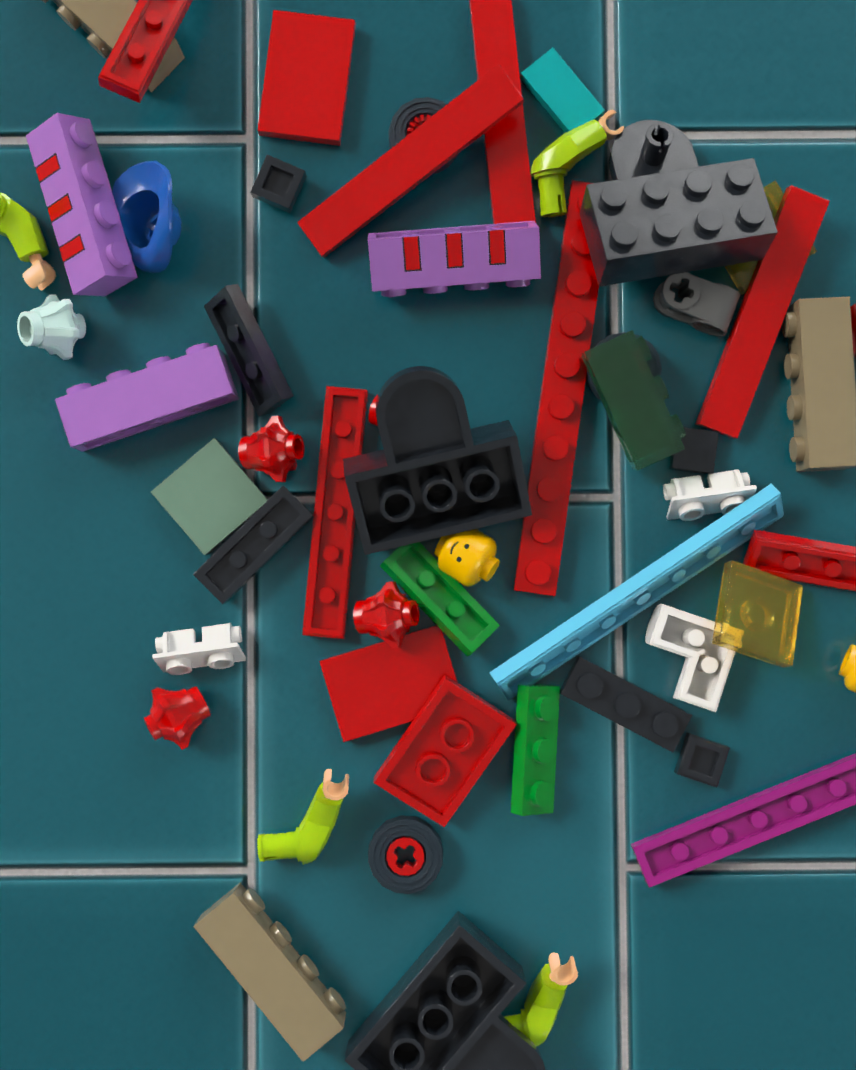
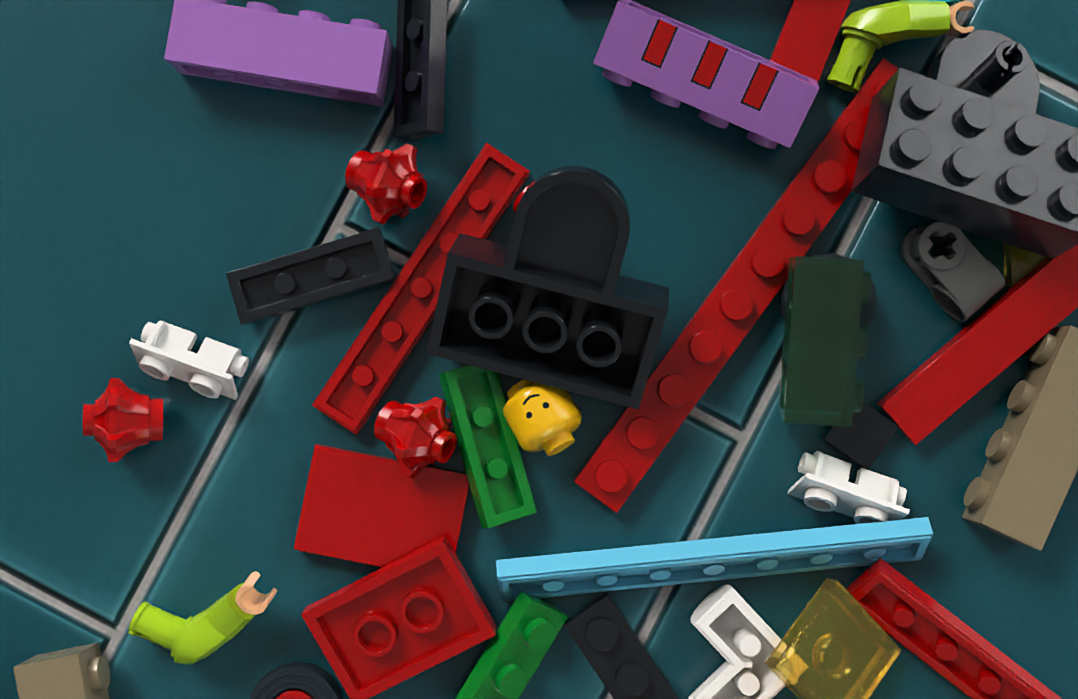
camera: 30 degrees right, 0 degrees up
(209, 496) = (292, 197): sand green tile -> none

